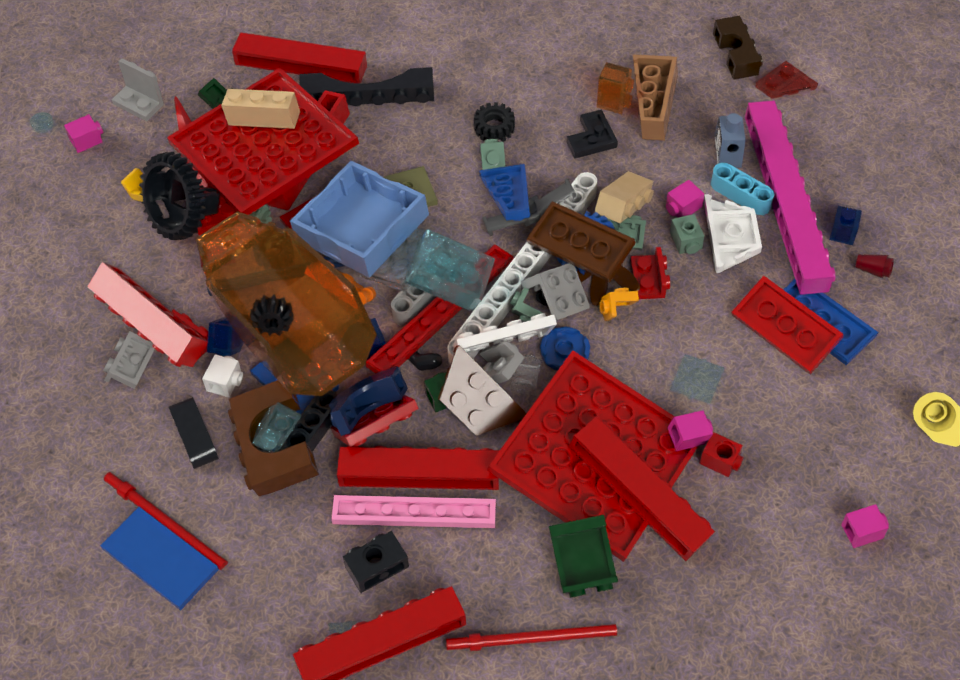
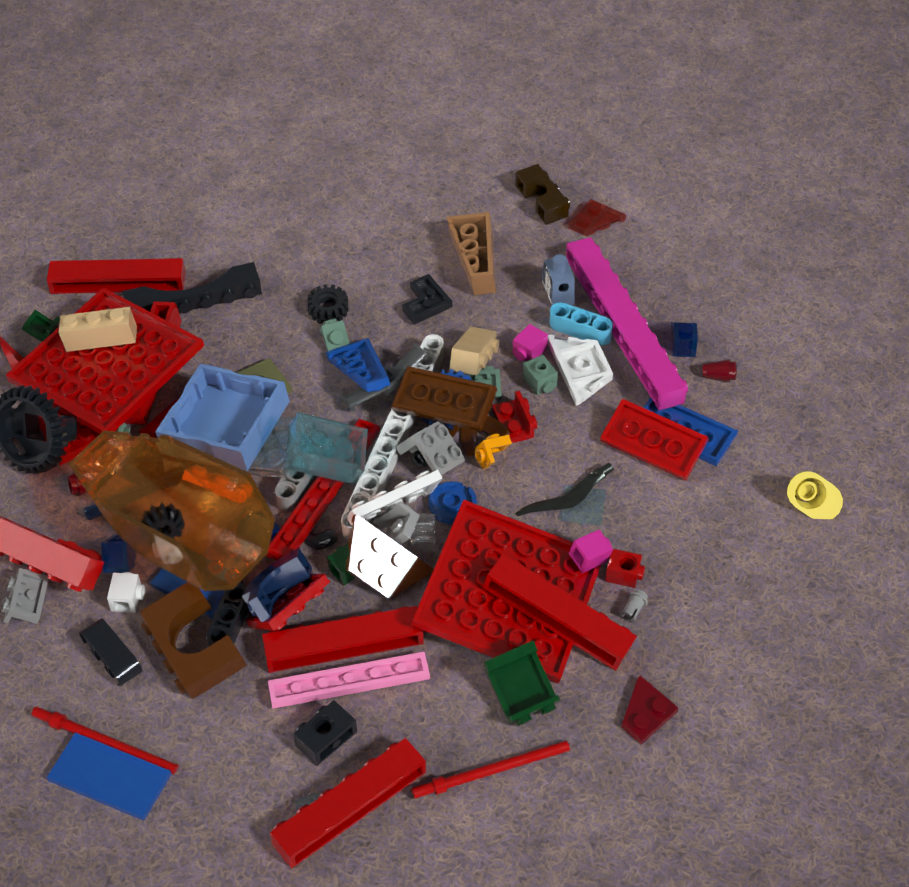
camera: 15 degrees left, 5 degrees down
(275, 427) = (195, 627): clear light blue slope -> none
(522, 309) = (403, 472): sand green bracket -> none
(615, 88) = (437, 251): clear orange brick -> none
(689, 368) = (573, 497): none -> pearl dark grey piece
(707, 612) = (647, 711): none -> dark red wing
(721, 497) = (636, 601): none -> light grey pin
(865, 526) = (769, 604): dark pink brick -> none

